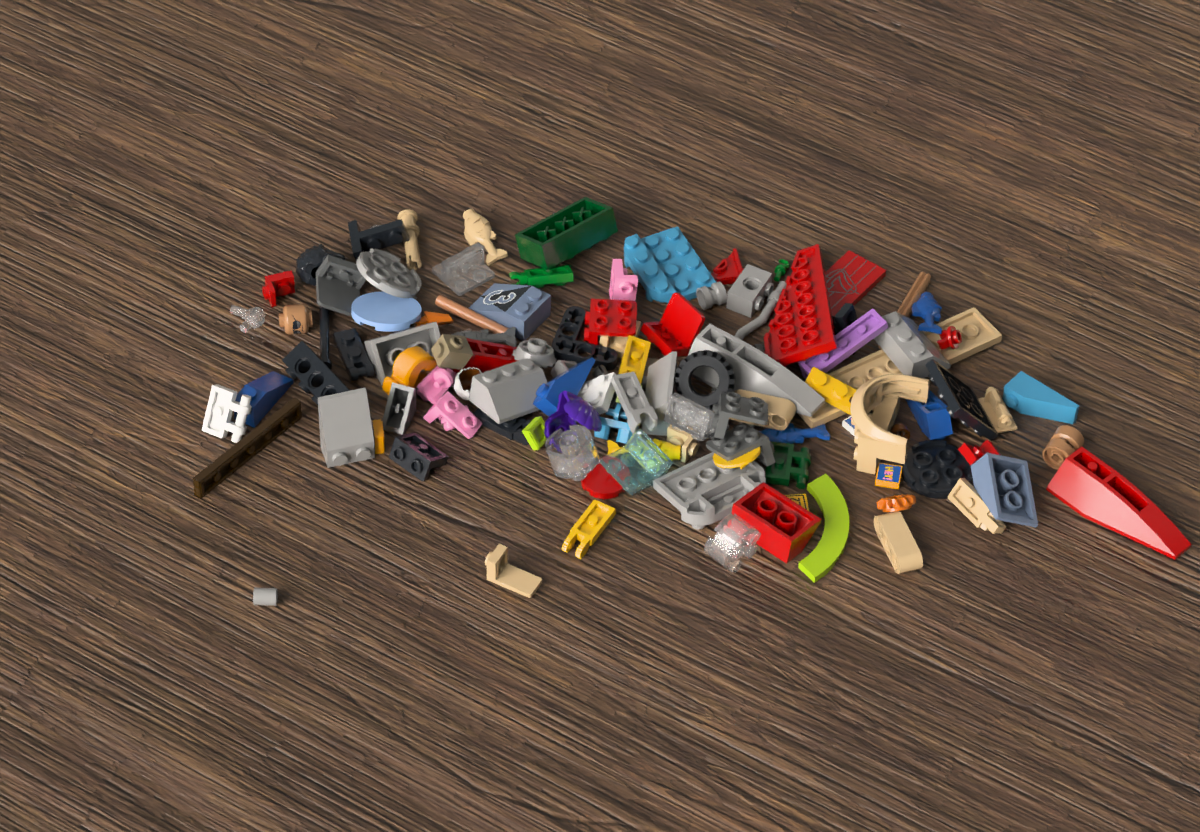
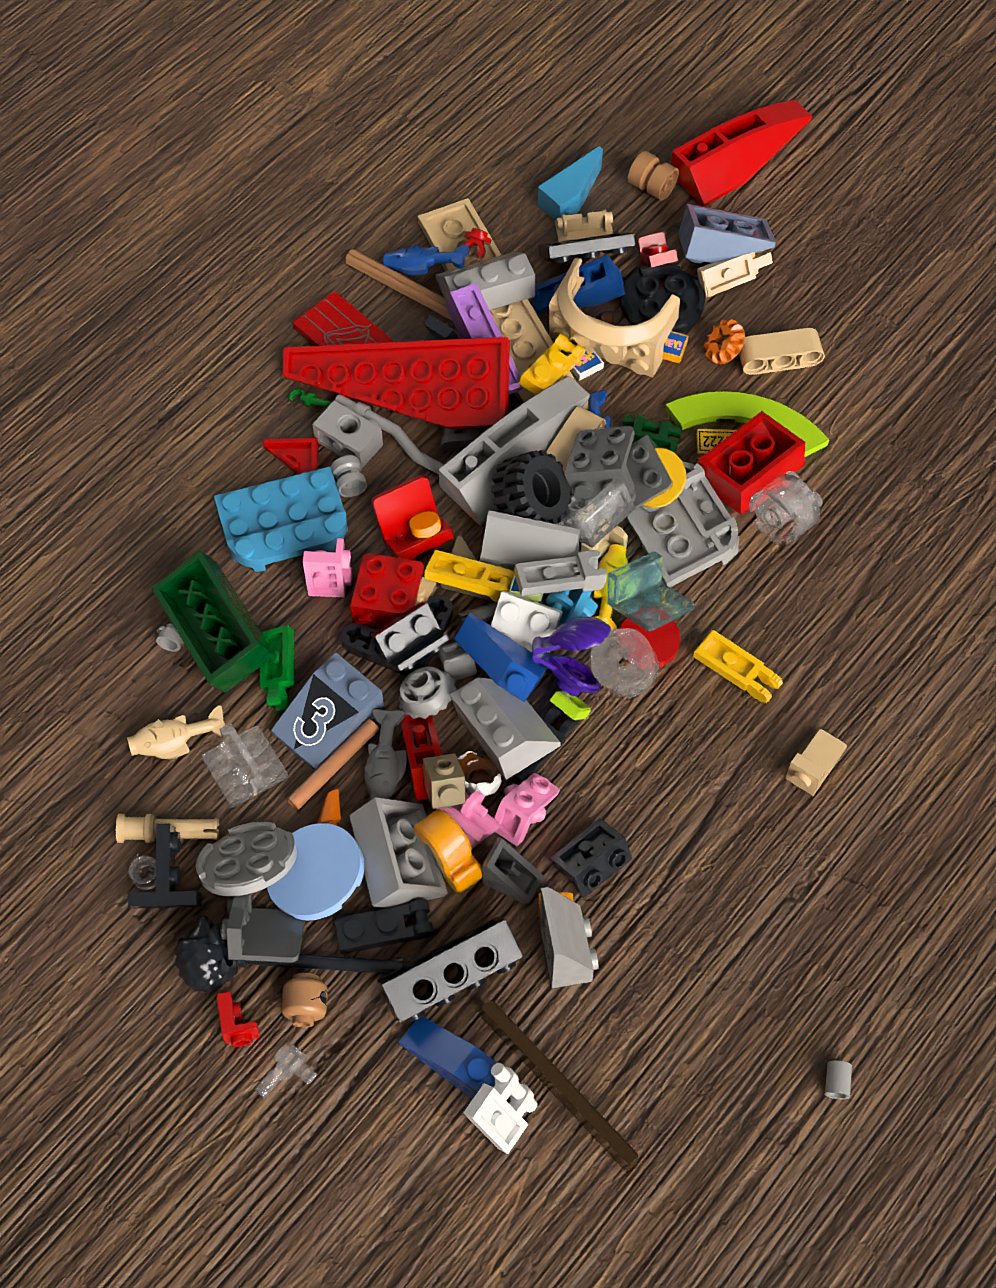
camera: 80 degrees left, 15 degrees up
(571, 333) = (409, 638): none -> bracket
(672, 335) = (425, 524): none -> light orange tile

